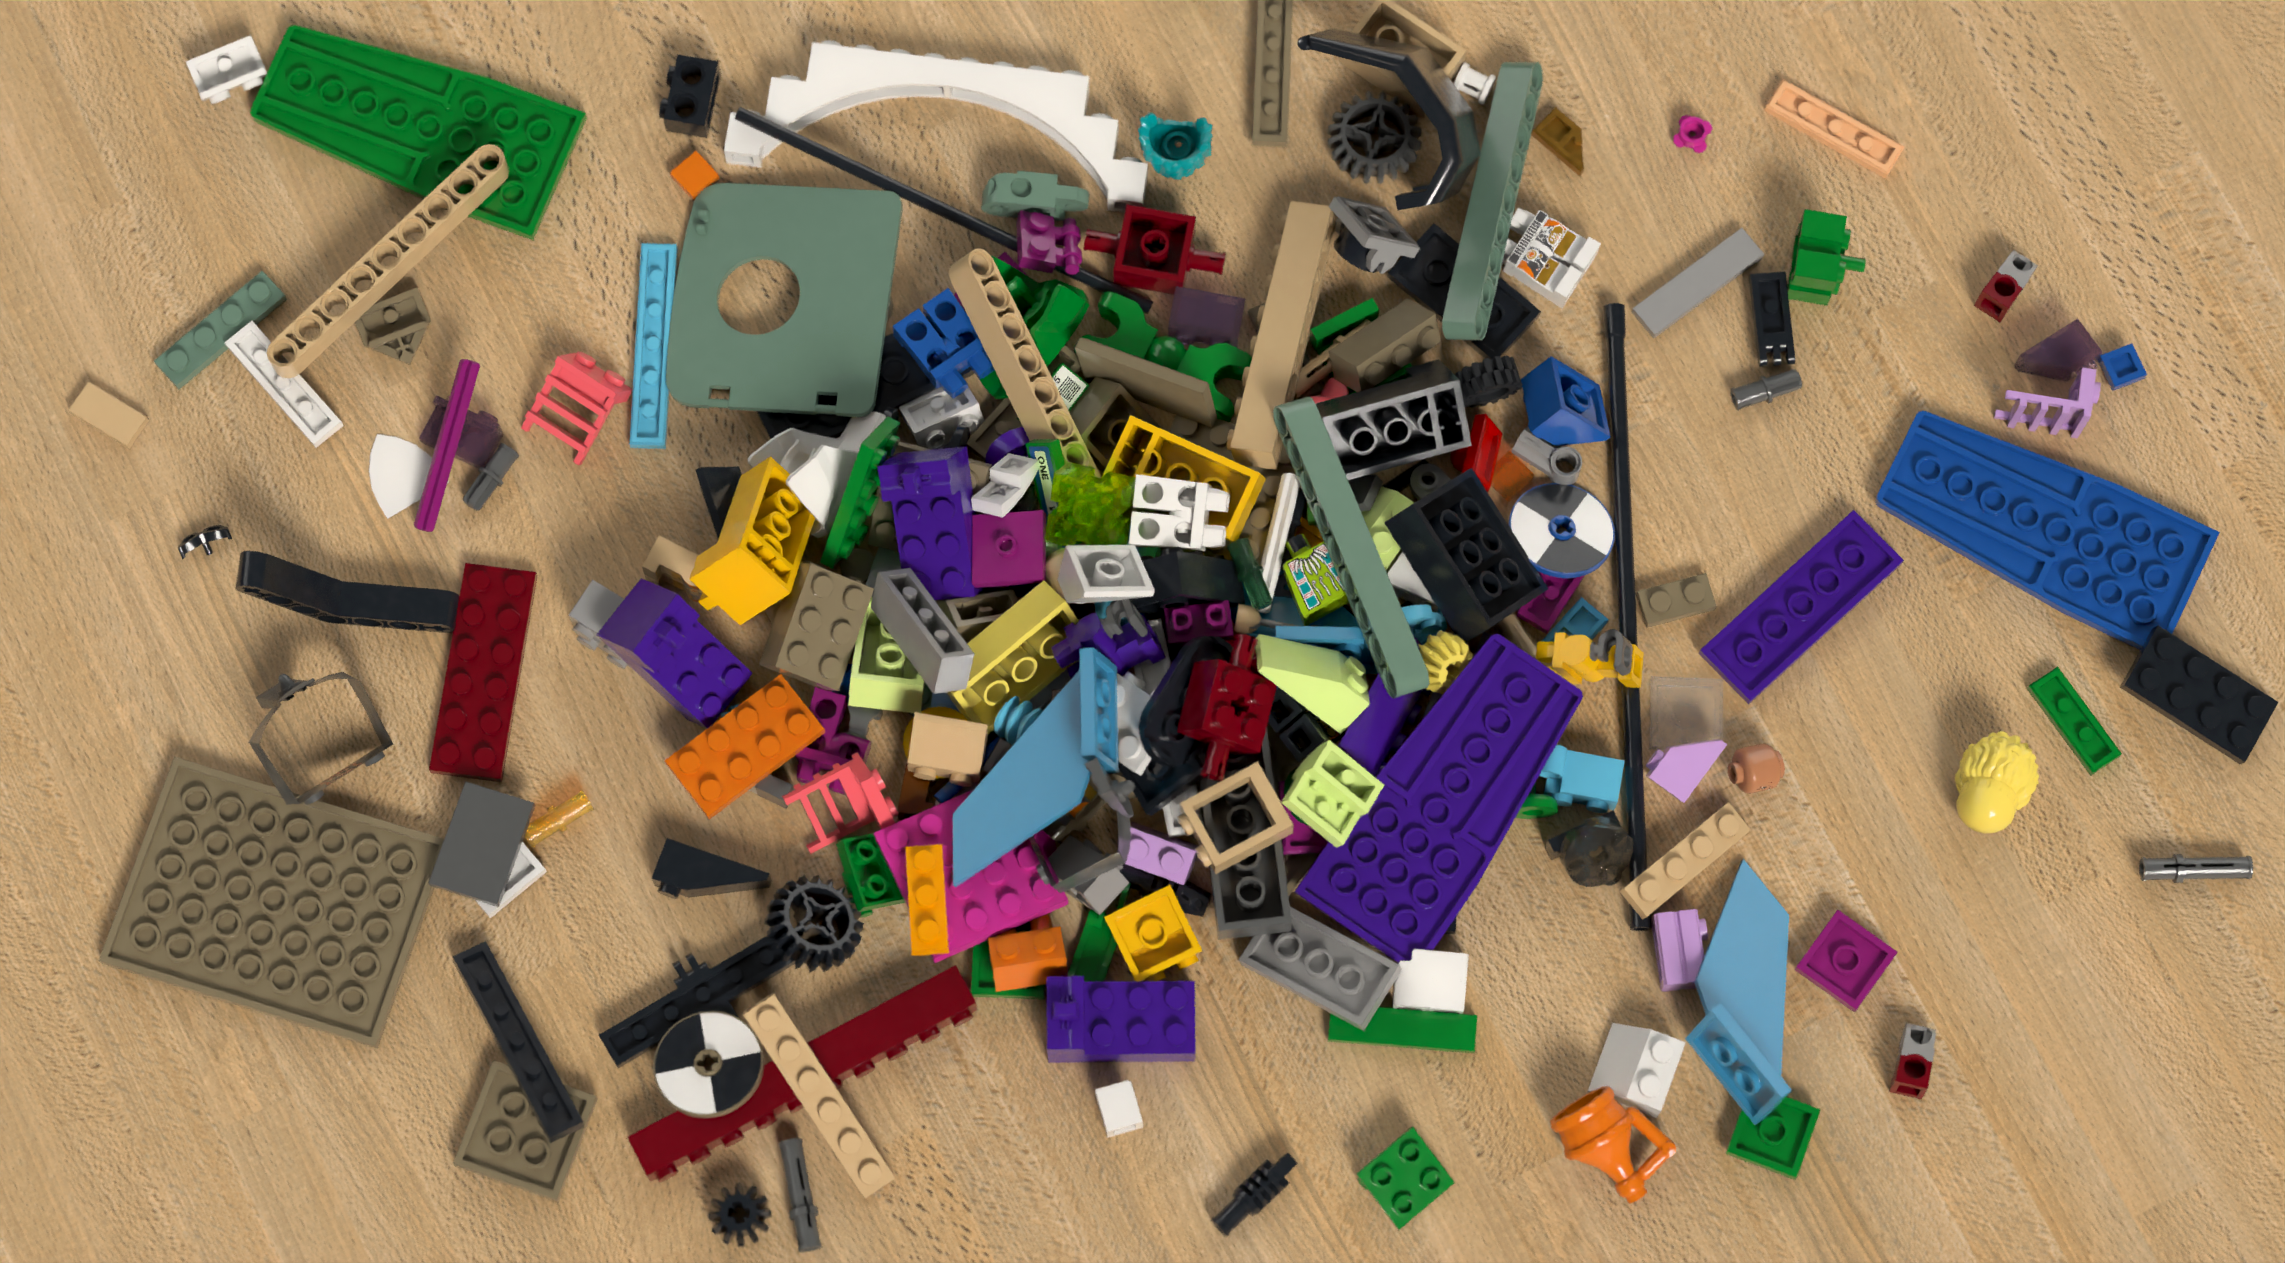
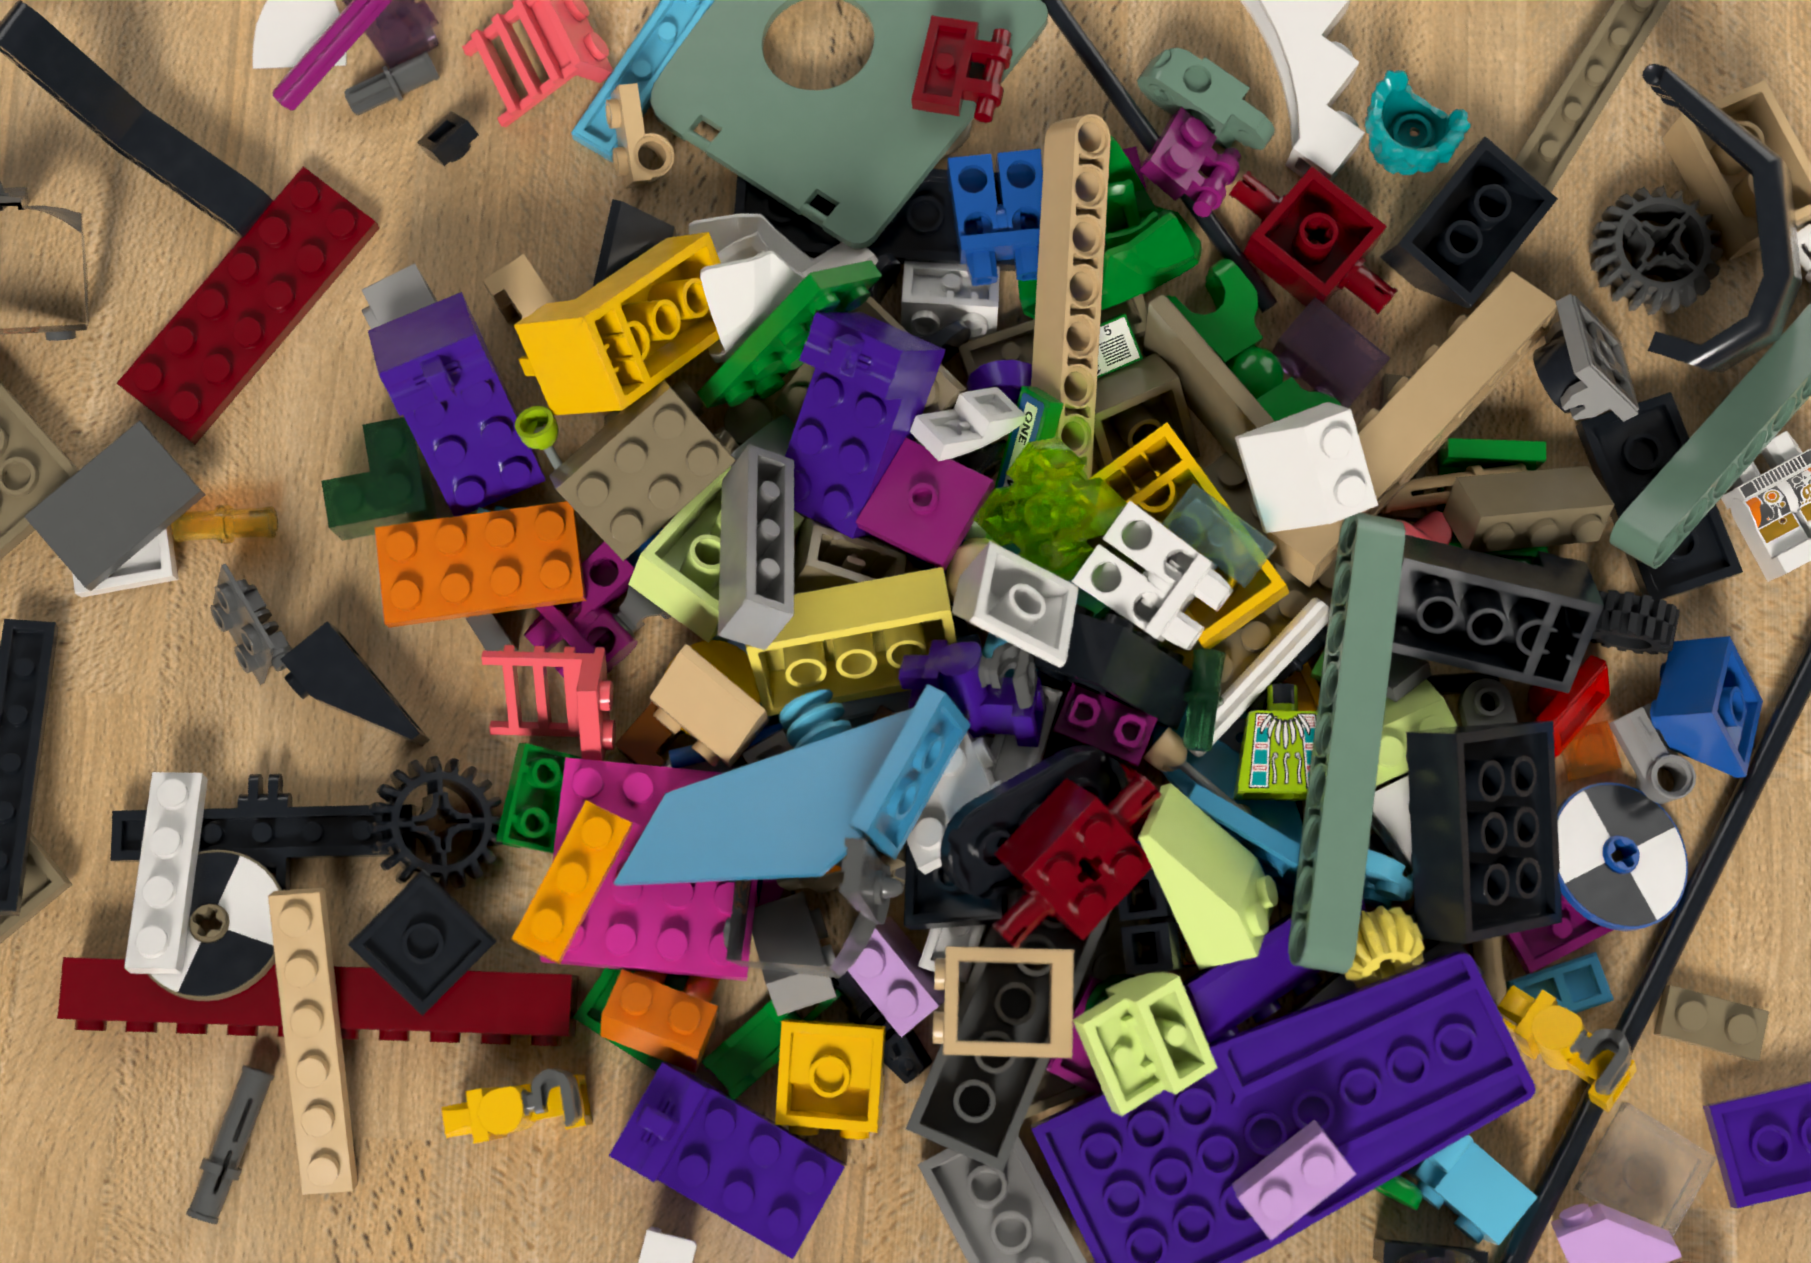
camera: 30 degrees right, 5 degrees up
(551, 492) = (448, 139): none -> black plate
(614, 871) = (242, 612): none -> dark grey hinge
(655, 736) = (393, 490): none -> clear green brick
(661, 1047) = (166, 873): none -> white plate
(666, 415) = (625, 116): none -> tan plate
(740, 644) = (535, 436): none -> lime hinge
(751, 1207) = (127, 1134): black gear -> none
(852, 994) = (422, 942): none -> black tile
(856, 268) = (946, 67): none -> dark red plate
(970, 1062) = (511, 1109): none -> yellow hips
(1203, 465) = (1219, 535): none -> clear light blue plate
(1232, 396) = (1307, 469): none -> white slope
(1247, 187) = (1469, 225): none -> black slope
(1467, 825) = (1292, 1180): none -> lavender brick

